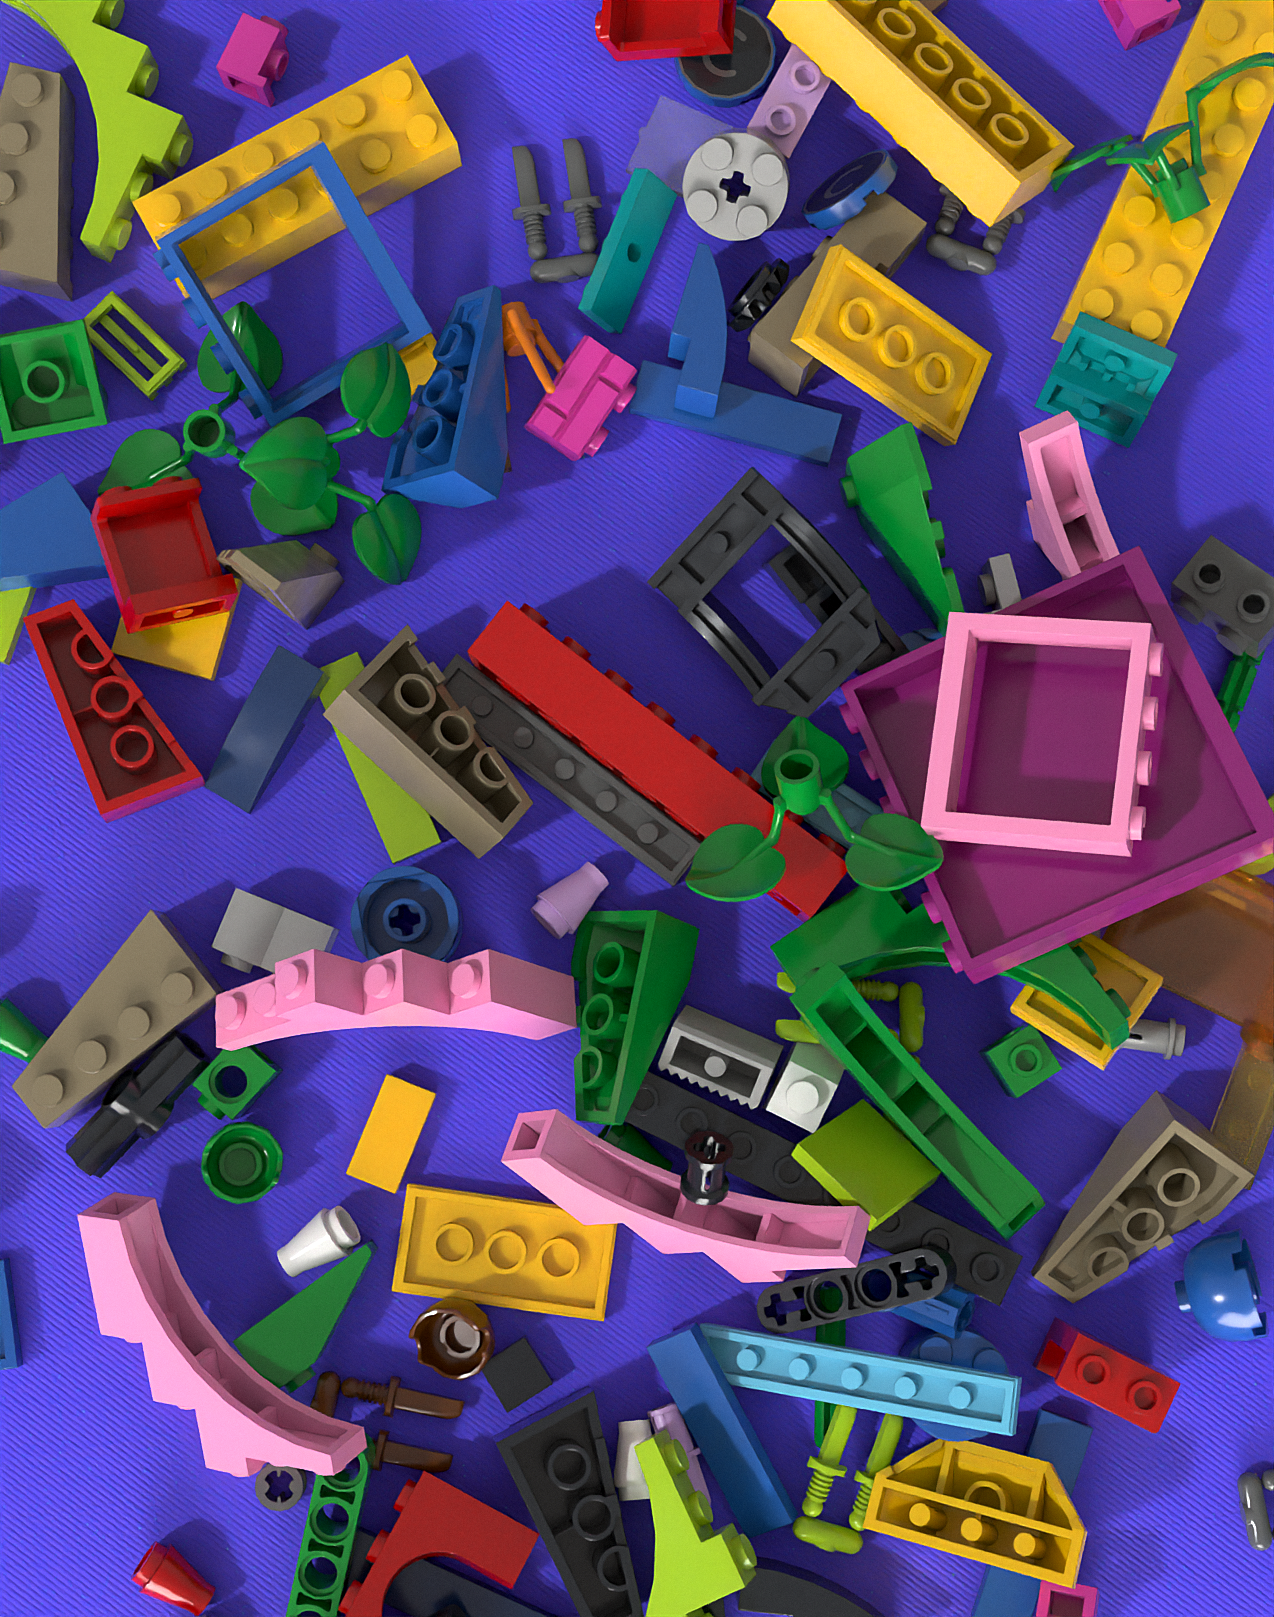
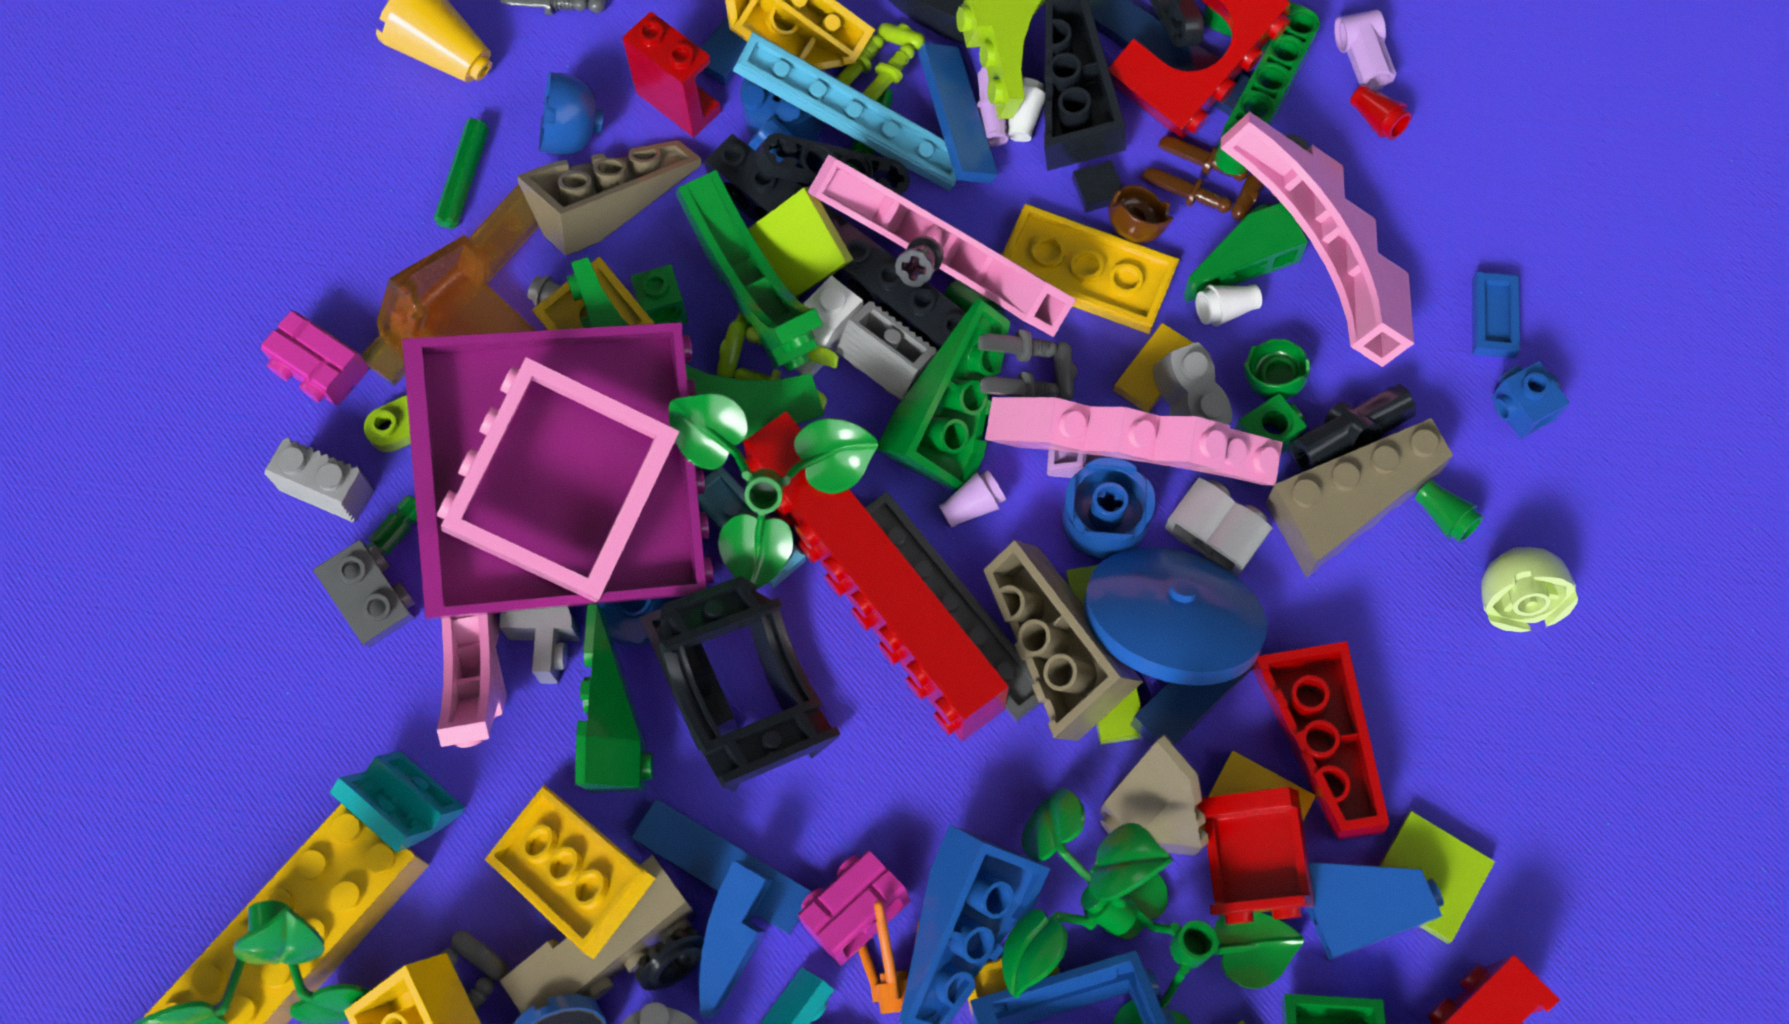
camera: 165 degrees left, 15 degrees down
(301, 800) = (1174, 616): none -> blue dish
(339, 1102) = (1189, 384): none -> light grey brick
(539, 1052) = (1024, 347): none -> dark grey piece

